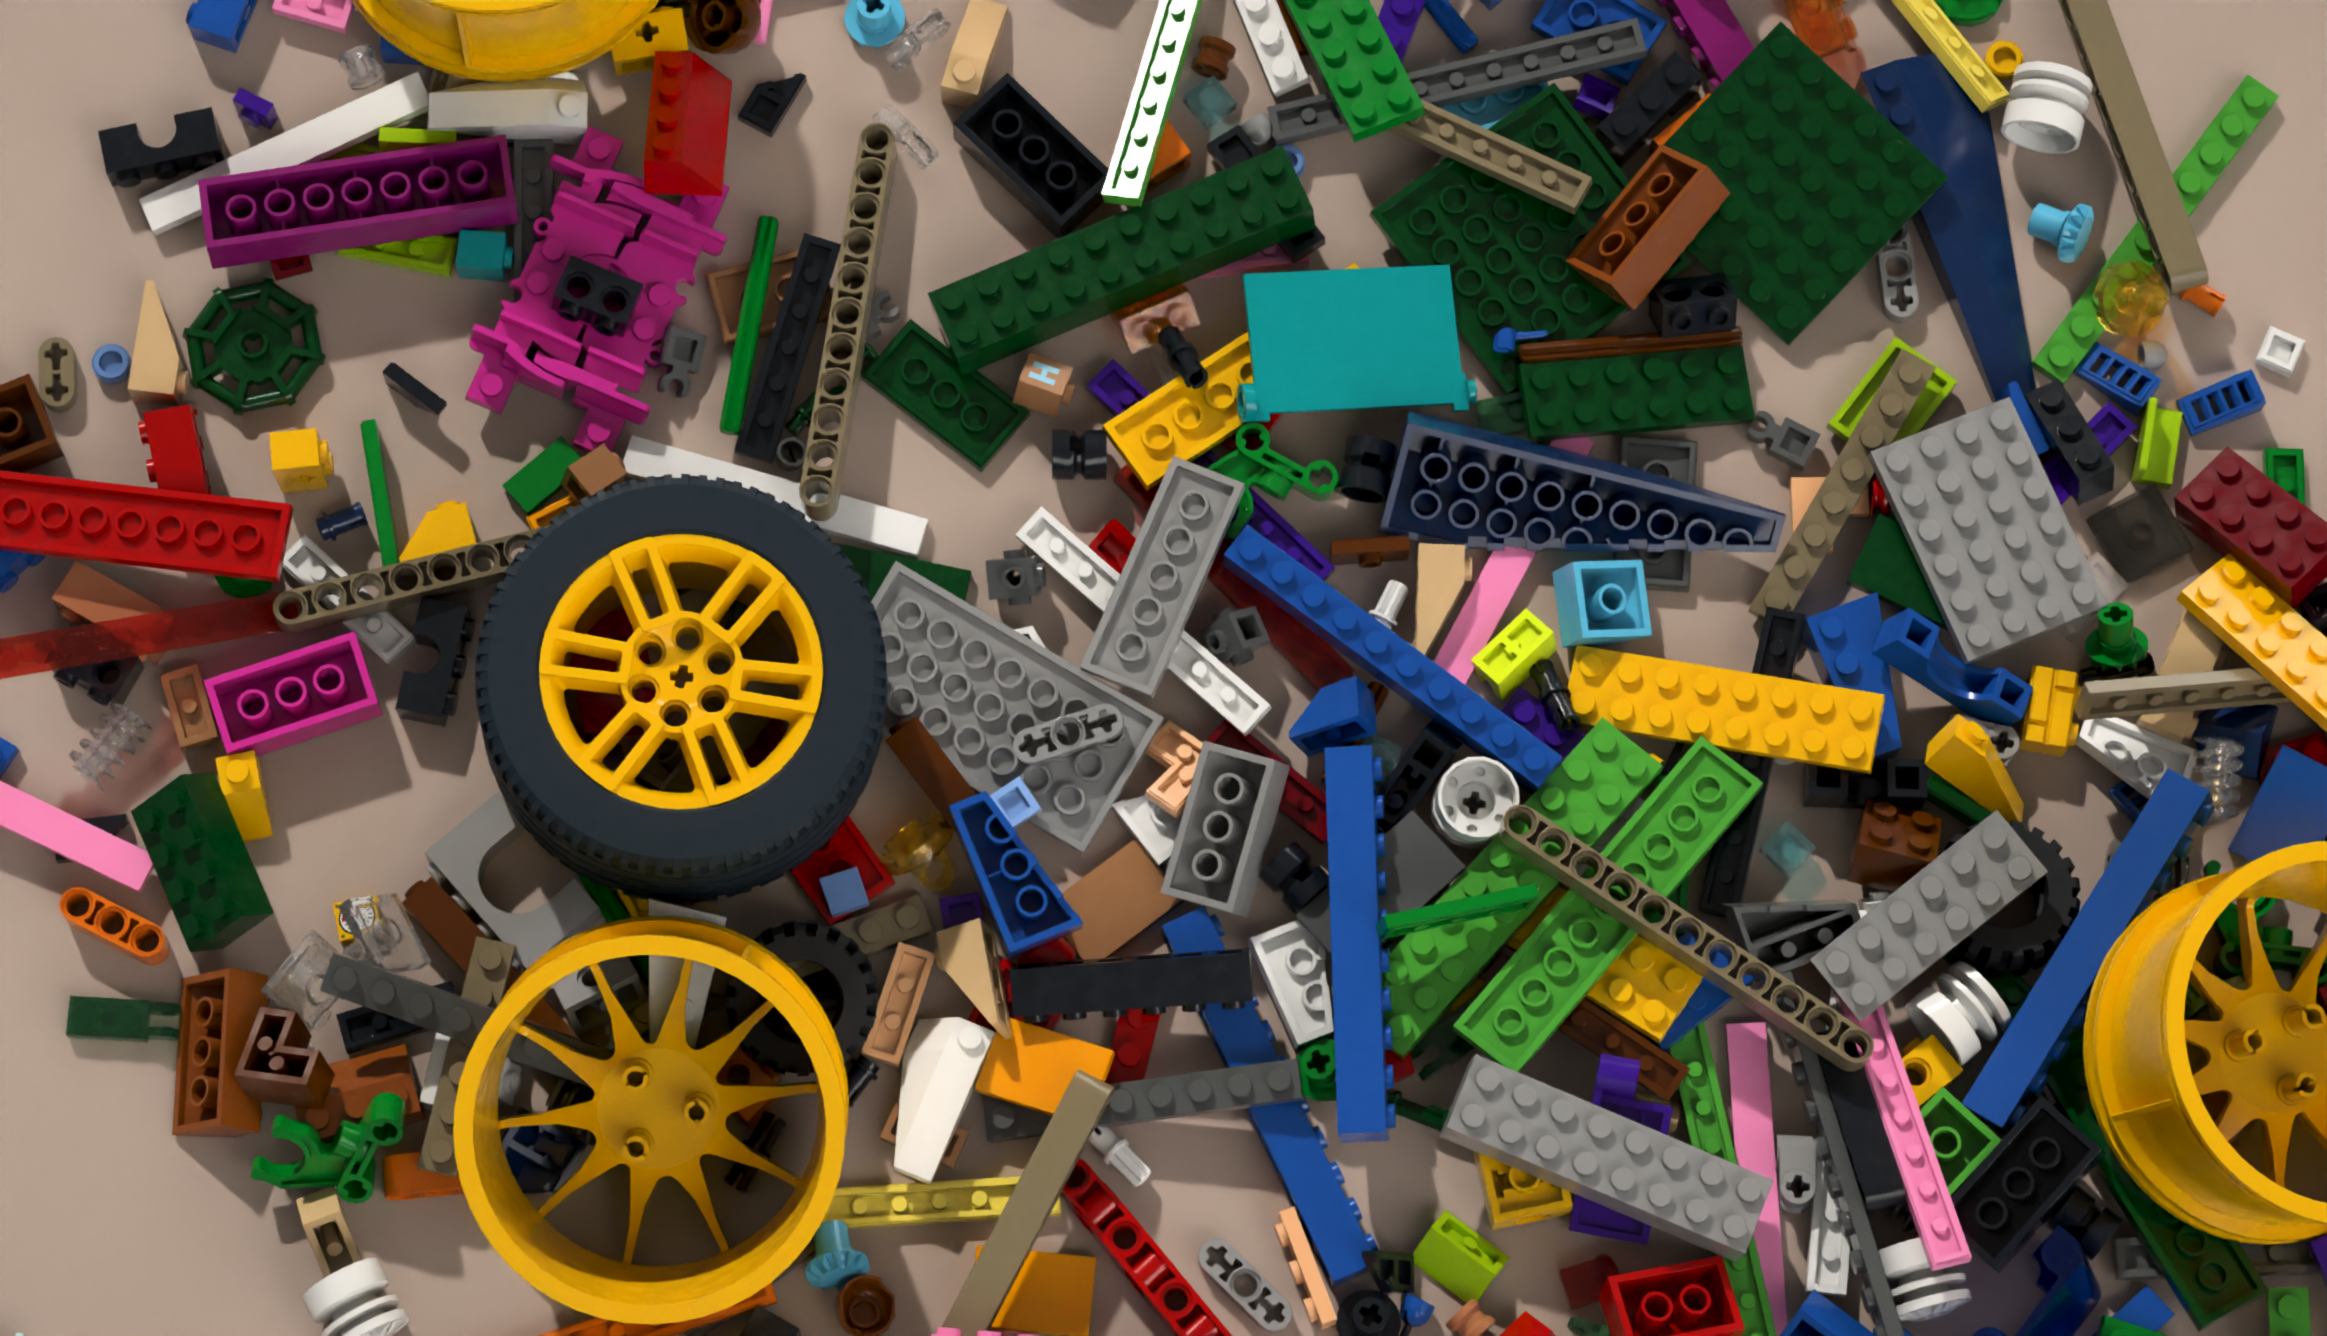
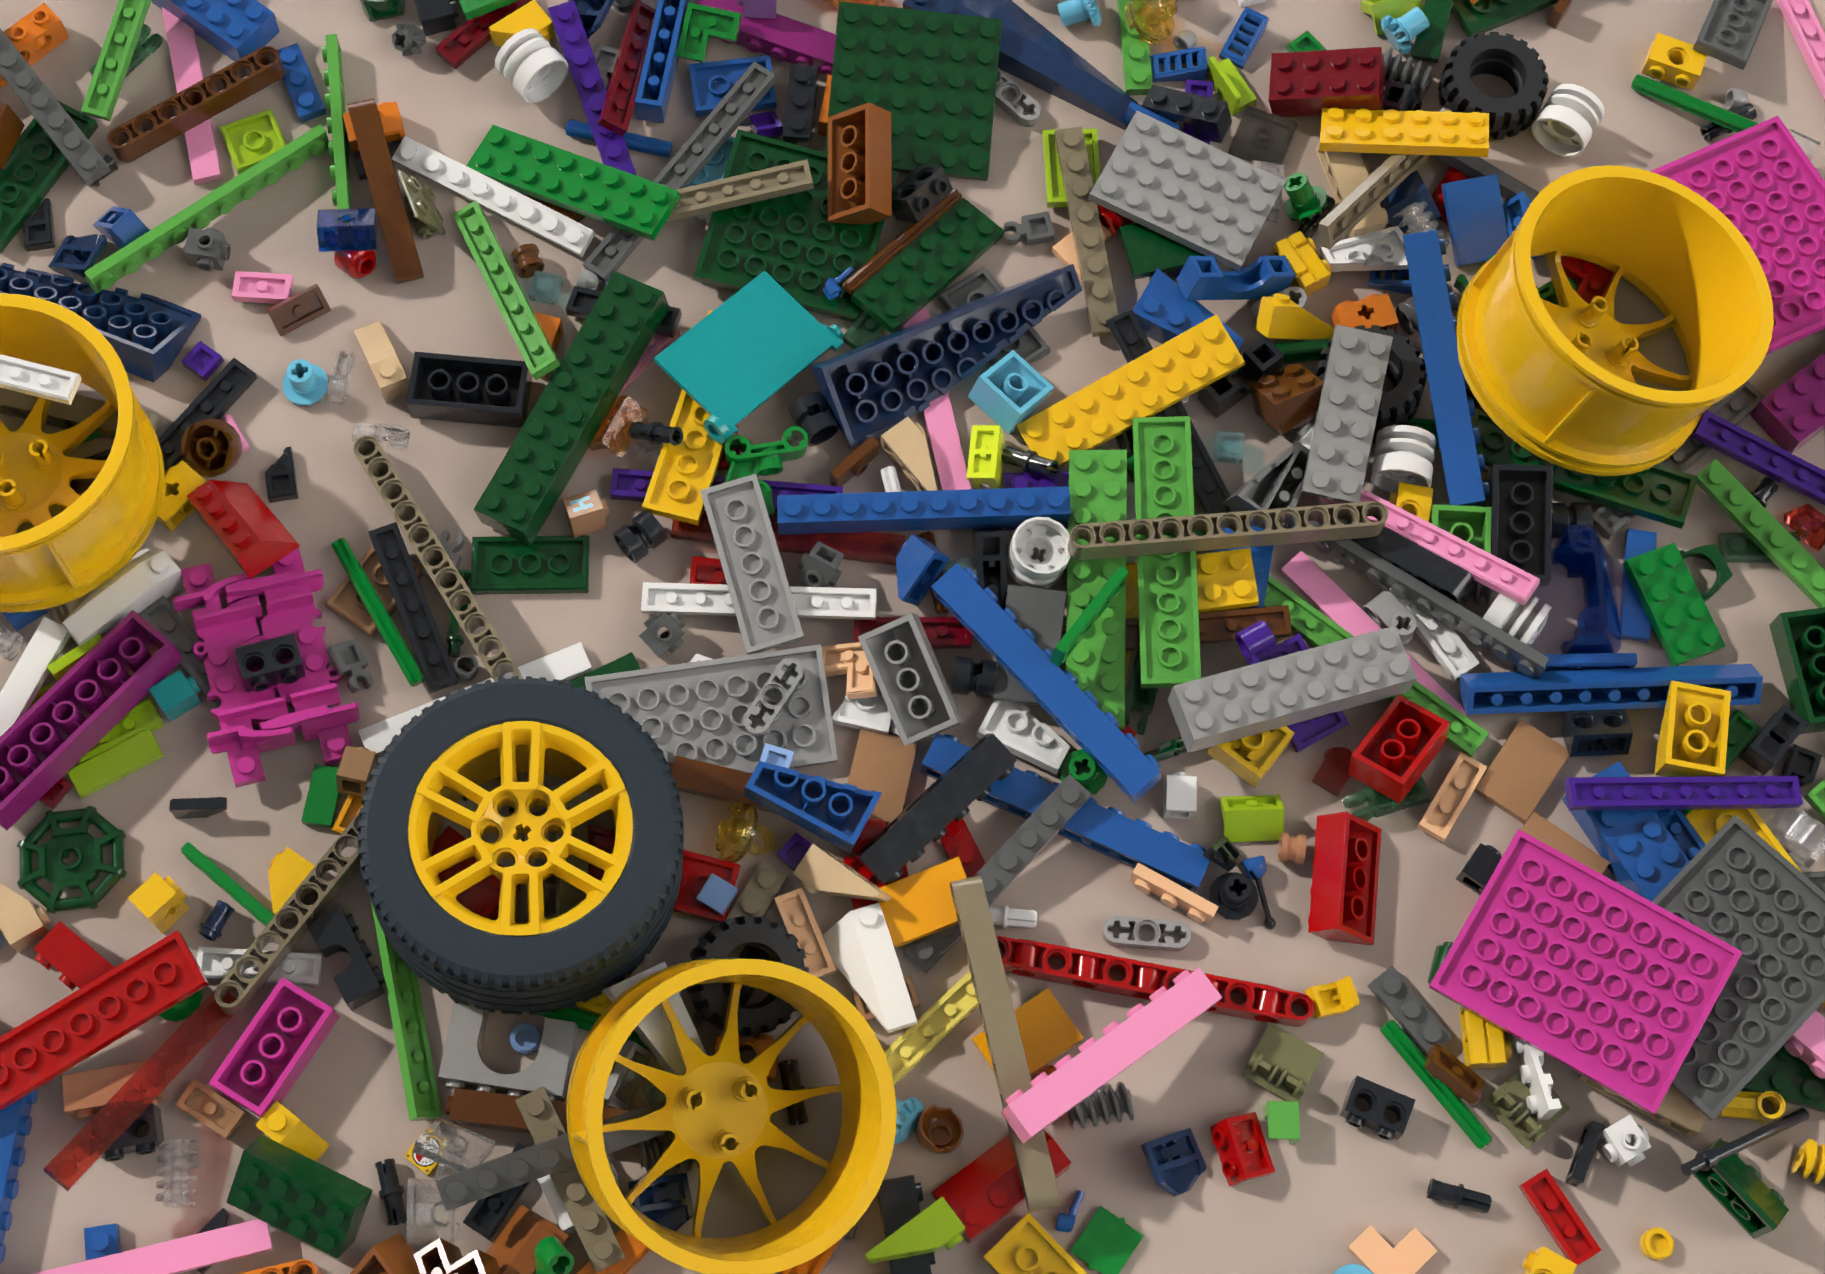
camera: 40 degrees left, 5 degrees down
(294, 927) = (391, 1192): none -> black pin
(372, 280) = (115, 763): none -> lime tile
(429, 796) = (409, 1033): none -> bright green plate
(541, 882) = (525, 1038): none -> medium blue tile
(1402, 1174) = (1180, 796): none -> white brick
(2085, 824) = (1370, 311): none -> orange brick

